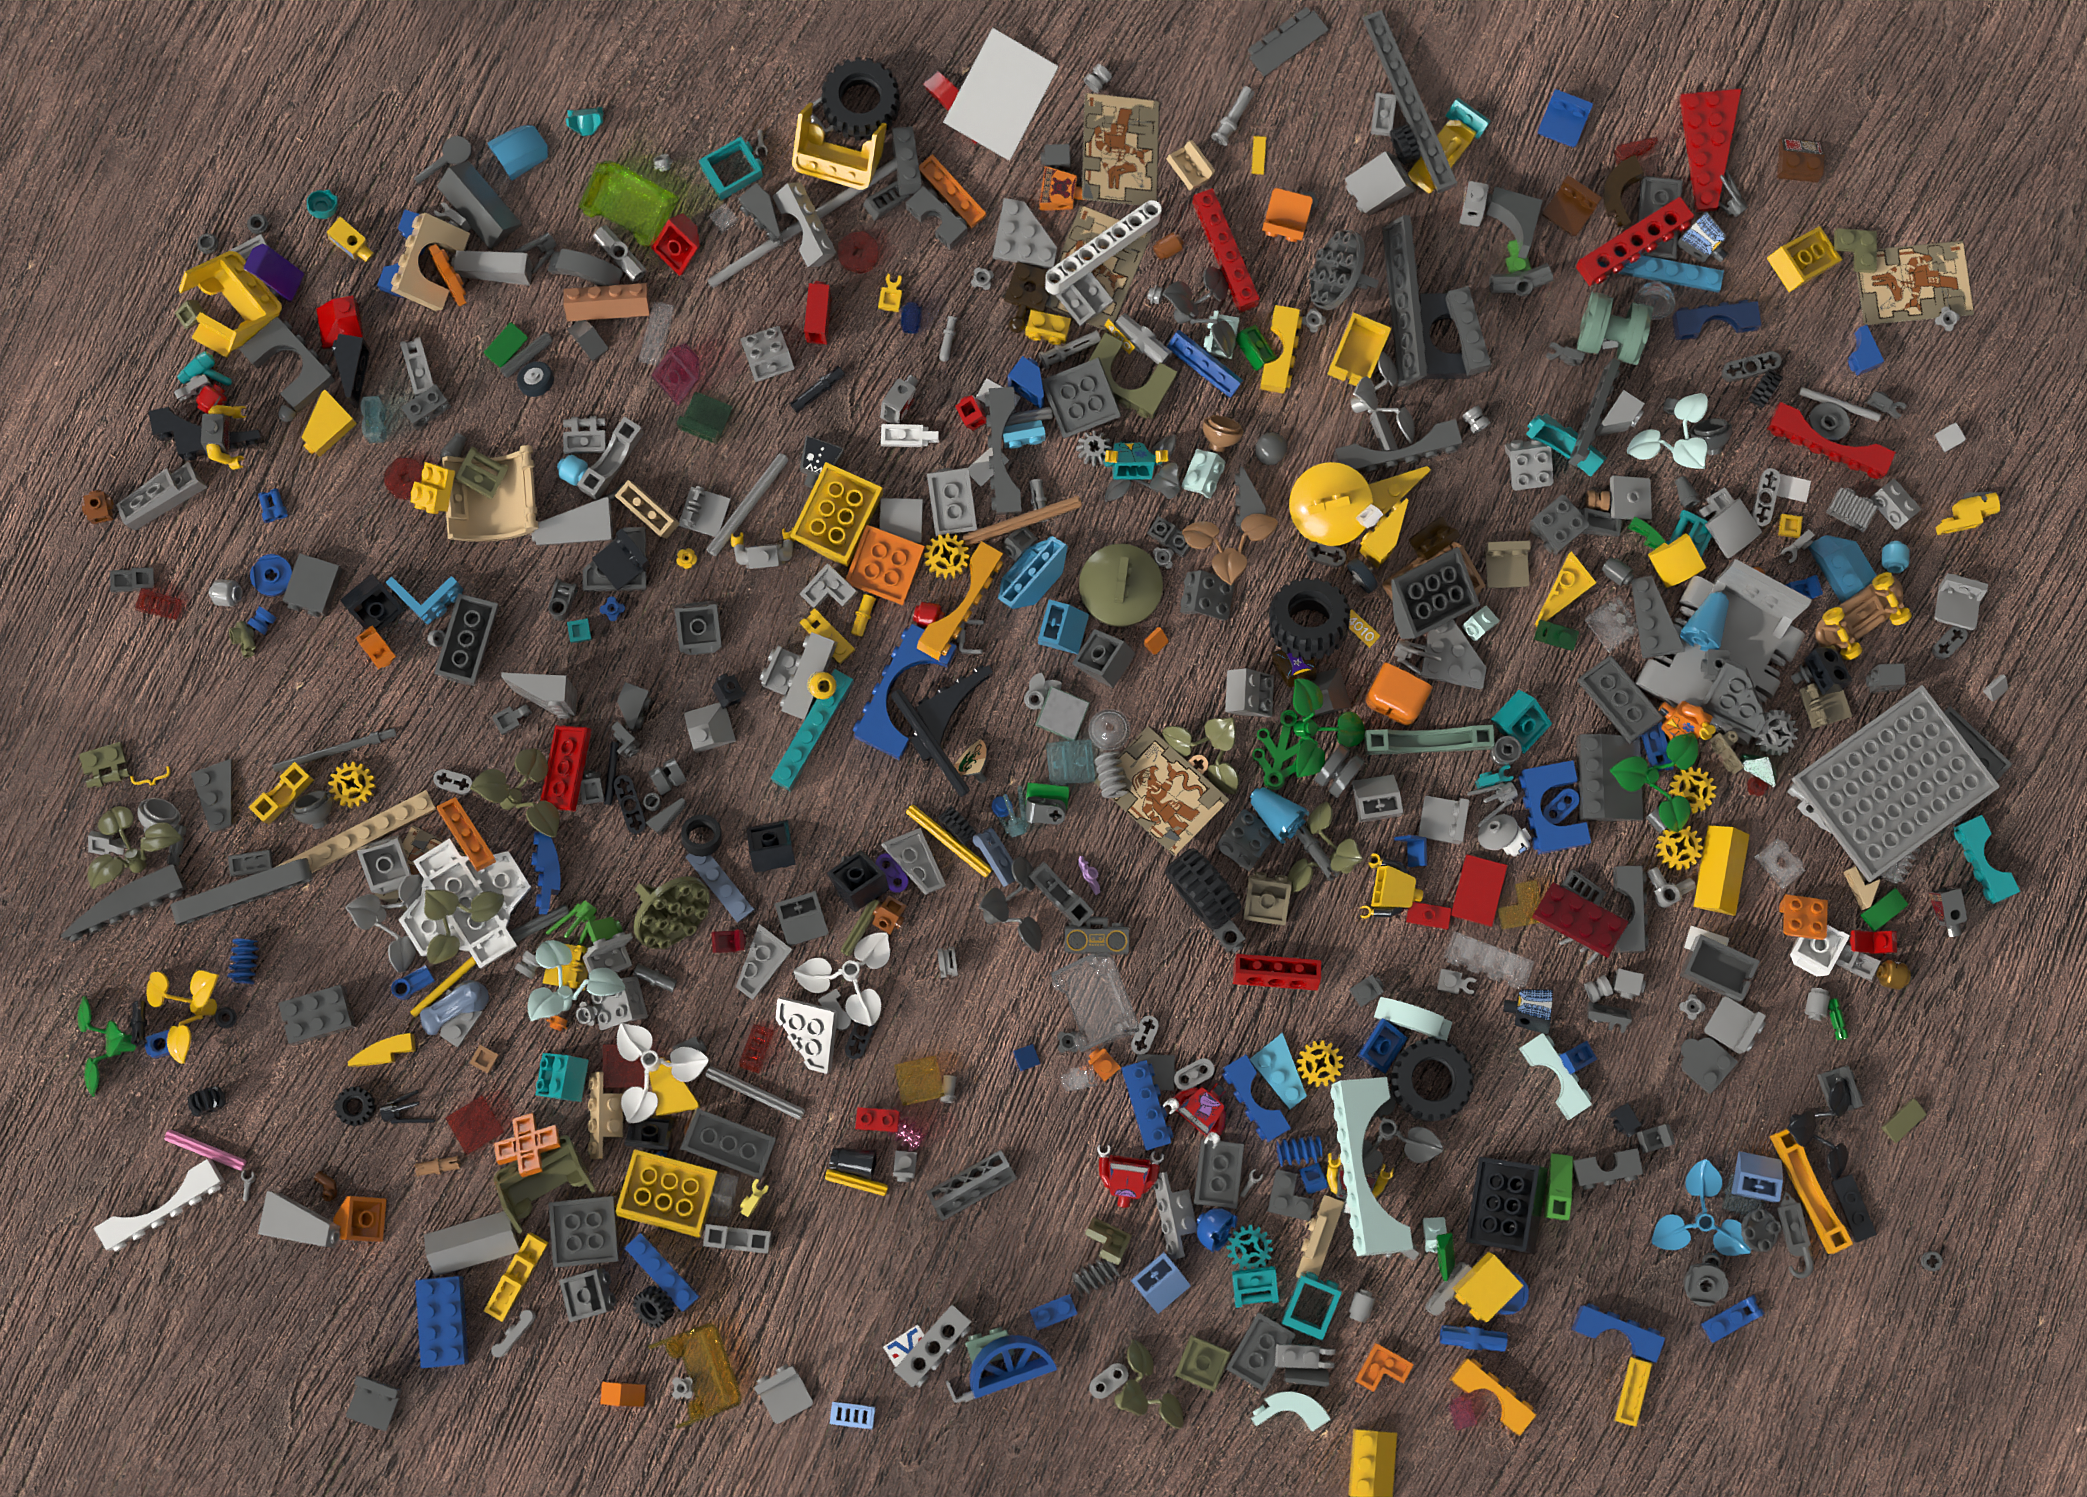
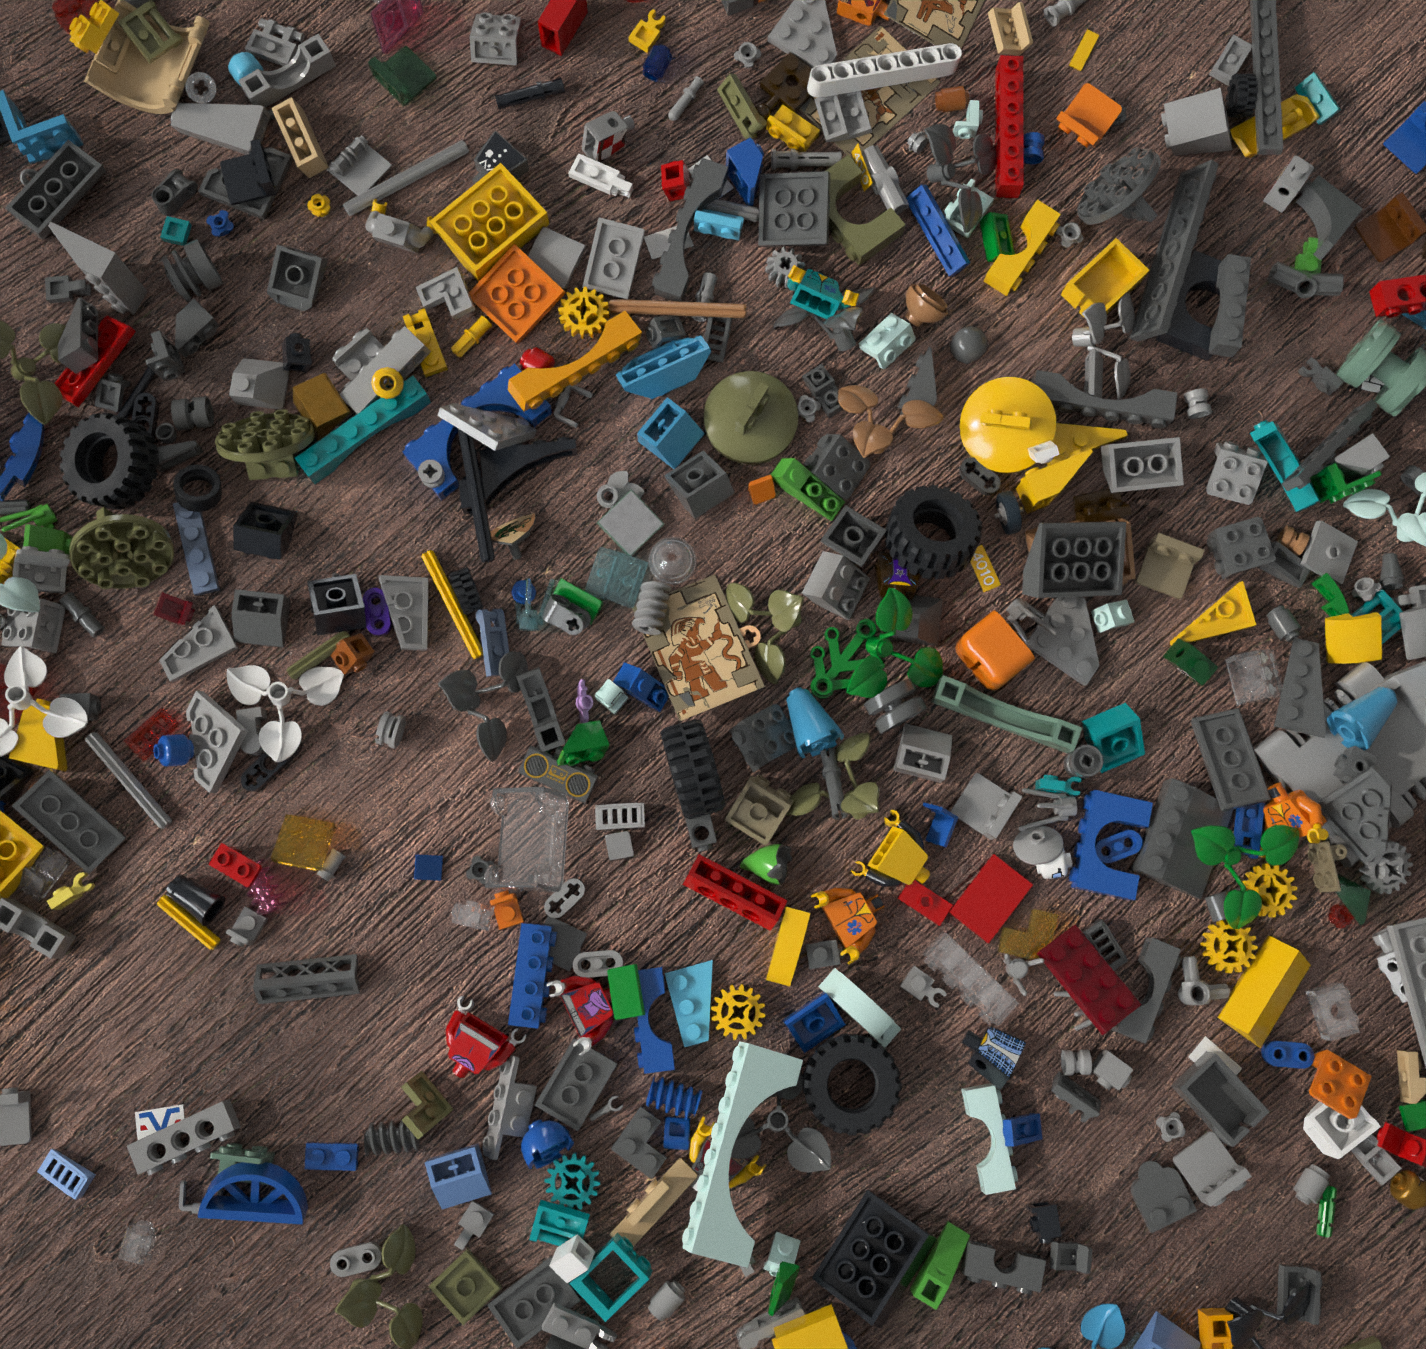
camera: 20 degrees right, 0 degrees up
(548, 756) = (80, 338): none -> dark grey slope
(549, 503) = (195, 78): none -> clear piece
(599, 850) = (85, 454): none -> black tyre
(613, 659) = (191, 270): none -> dark grey wheel
(742, 774) = (265, 443): none -> olive bracket
(768, 725) = (320, 403): none -> pearl gold slope
(782, 1052) = (174, 750): none -> blue head
(889, 746) = (432, 479): none -> light grey wheel
(918, 685) = (487, 427): none -> light grey plate
(935, 1440) = (138, 1242): none -> clear brick
(998, 327) = (741, 107): none -> olive plate
(1073, 545) = (714, 357): none -> dark grey slope
(1107, 905) = (584, 744): none -> green slope
(1110, 860) = (611, 696): none -> light aqua leg
(1130, 841) = (641, 686): none -> blue slope
(1169, 975) = (619, 845): none -> light grey slope
(1178, 950) = (619, 807): none -> light grey slope
(1186, 1312) = (474, 1222): none -> light grey plate
(1191, 624) = (806, 487): none -> bright green slope
(1193, 255) = (969, 128): none -> light aqua bracket
(1227, 1084) = (625, 992): none -> green slope
(1247, 648) = (854, 536): none -> dark grey slope
(1252, 260) = (1033, 147): none -> blue wheel
(1275, 1304) = (572, 1258): none -> white brick
(1293, 937) = (769, 863): none -> bright green hat
(1336, 996) = (788, 946): none -> yellow slope
(1375, 952) = (850, 917): none -> orange torso
(1452, 490) = (1142, 464): none -> light grey slope
(1523, 935) = (1018, 969): none -> light grey plant
(1608, 444) = (1331, 486): none -> green bracket
(1672, 515) = (1366, 588): none -> light grey plate
(1760, 912) = (1288, 1054): none -> blue plate

